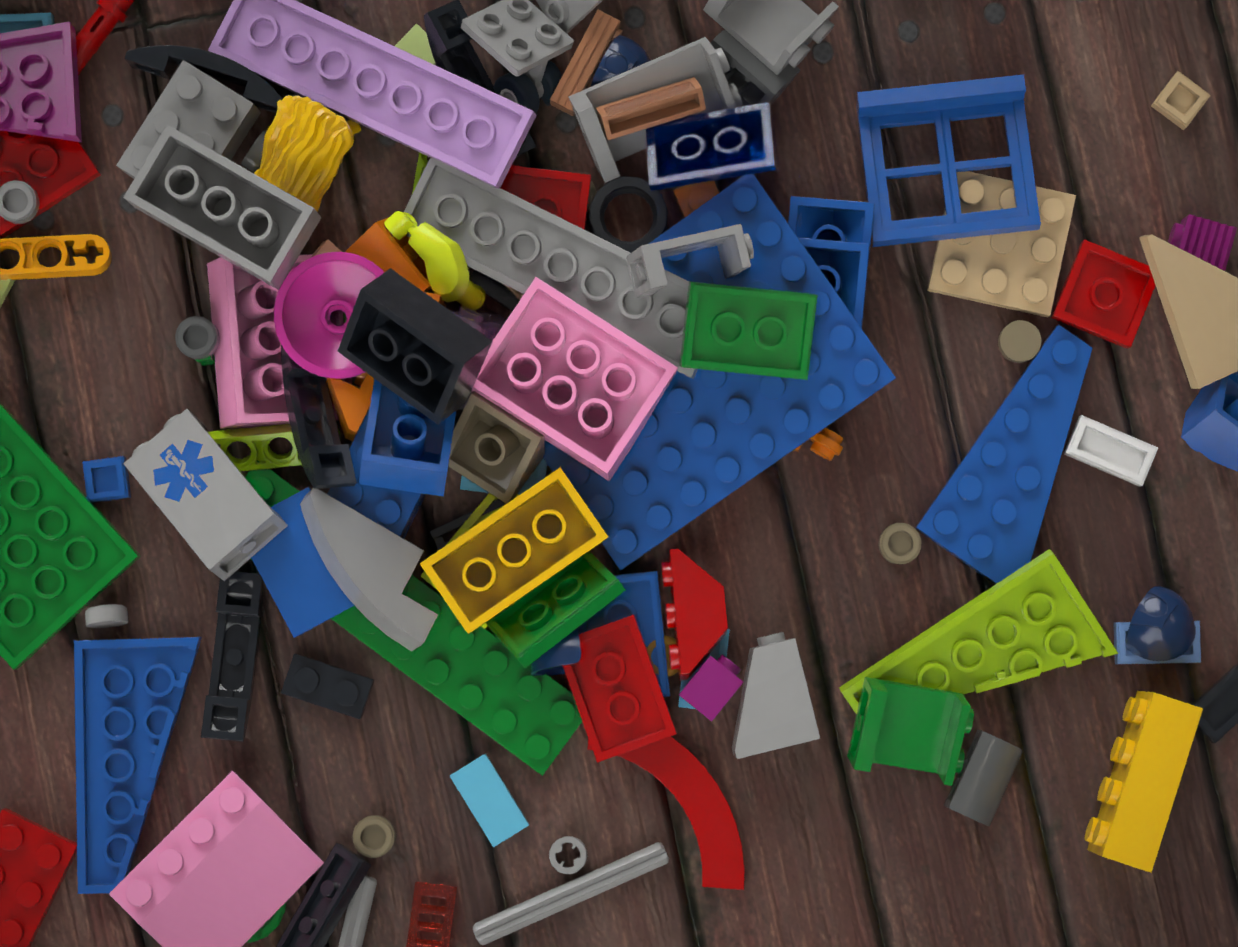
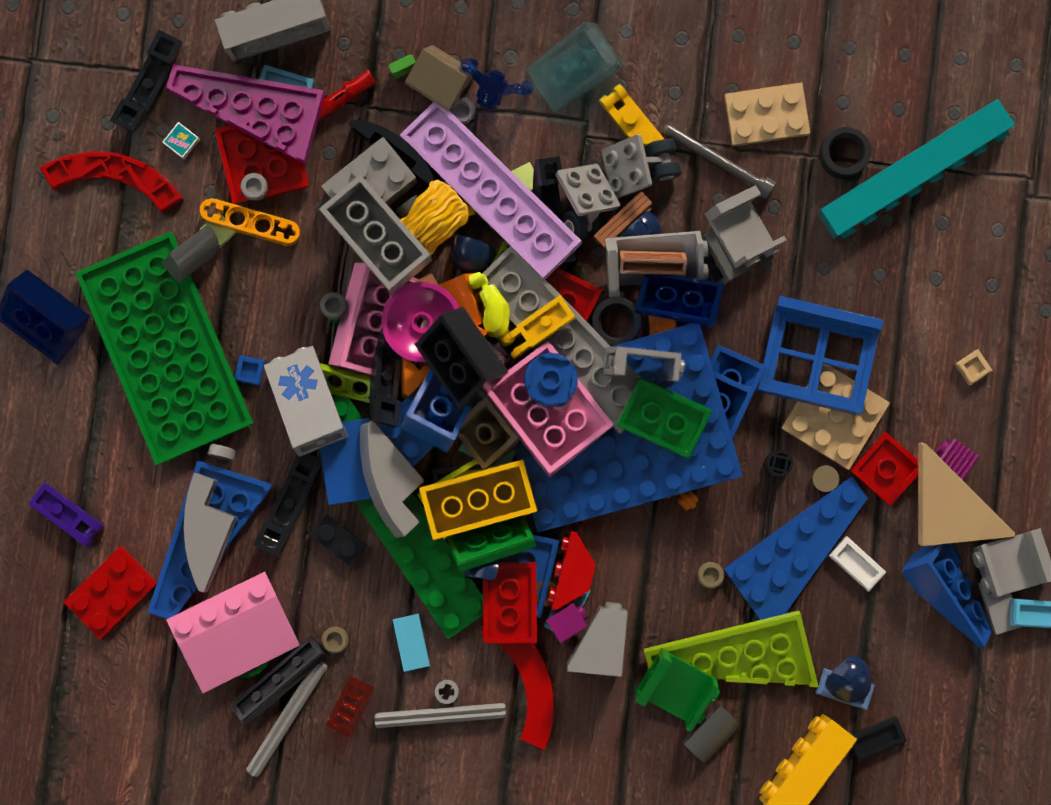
camera: 20 degrees right, 0 degrees up
(122, 741) = (205, 531): none -> light grey slope
(377, 190) = (471, 255): none -> dark blue helmet
(516, 258) = (540, 325): none -> yellow hinge
(560, 333) = (550, 380): none -> blue tile
(937, 348) = (774, 463): none -> black wheel

